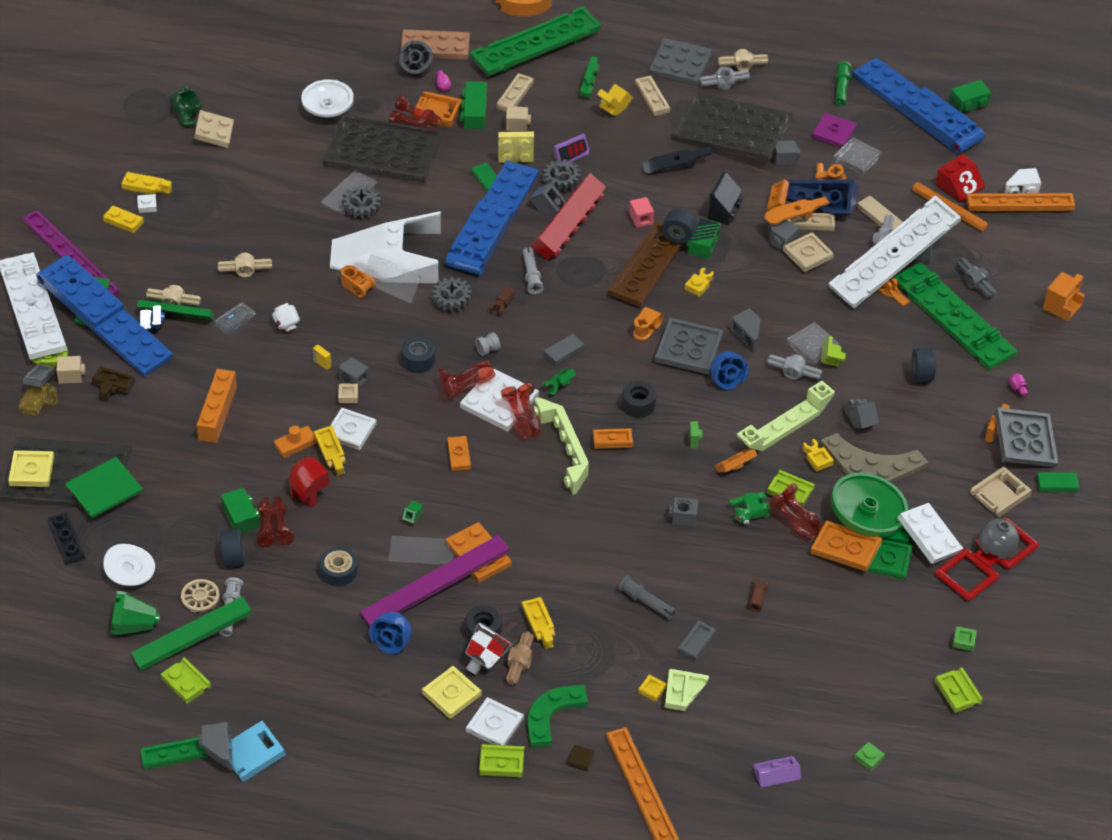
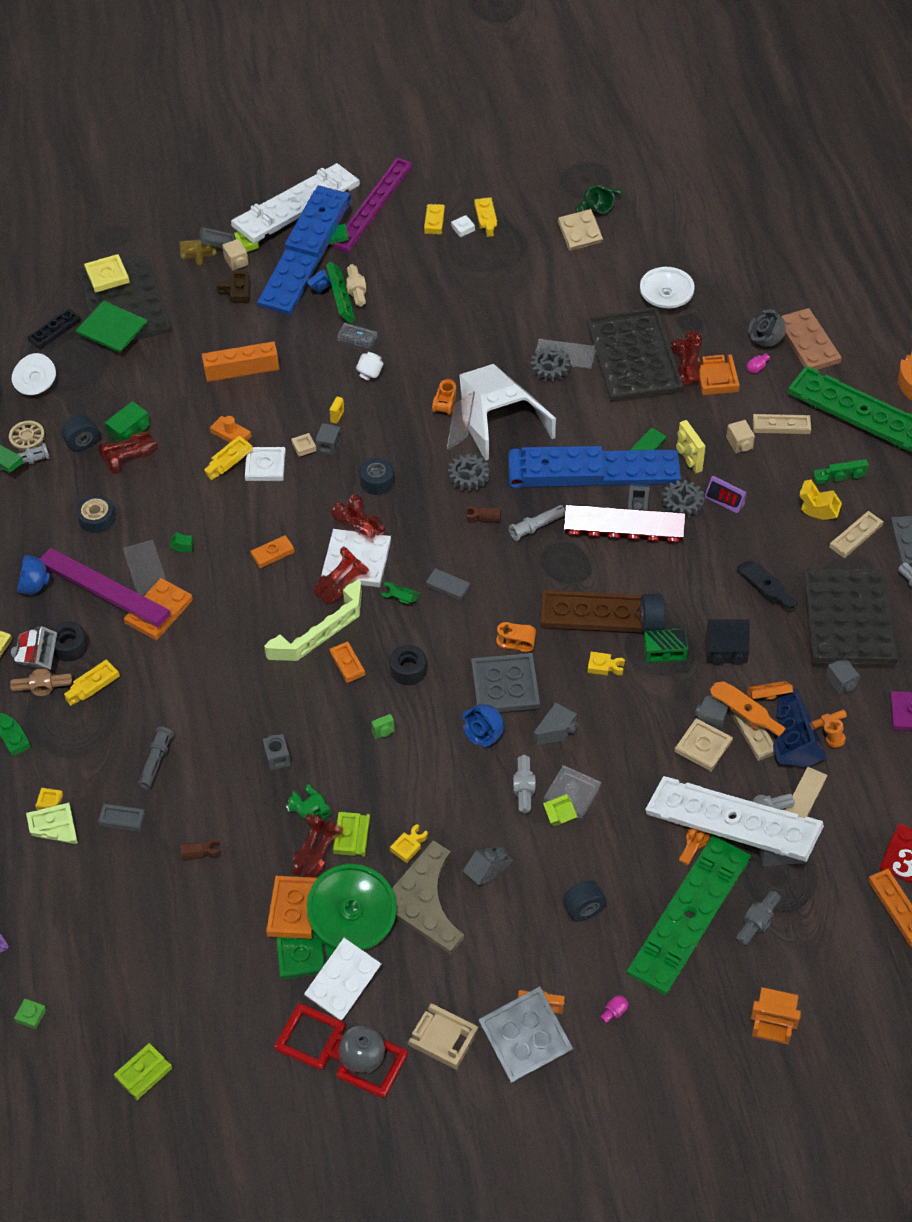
camera: 70 degrees right, 5 degrees up
(245, 265) = (422, 316): tan axle -> none
(306, 479) = (177, 450): red brick -> none
(474, 105) = (737, 398): green brick -> none
(487, 344) = (418, 522): light grey wheel -> none
(641, 212) = (670, 580): coral brick -> none
(736, 461) = (365, 773): orange plate -> none
(816, 401) = (467, 814): yellowish green slope -> none
(857, 155) = (887, 745): clear plate -> none
(964, 638) = (215, 1057): bright green plate -> none
(965, 215) = (861, 860): orange axle -> none
(1057, 482) = (486, 1091): green tile -> none

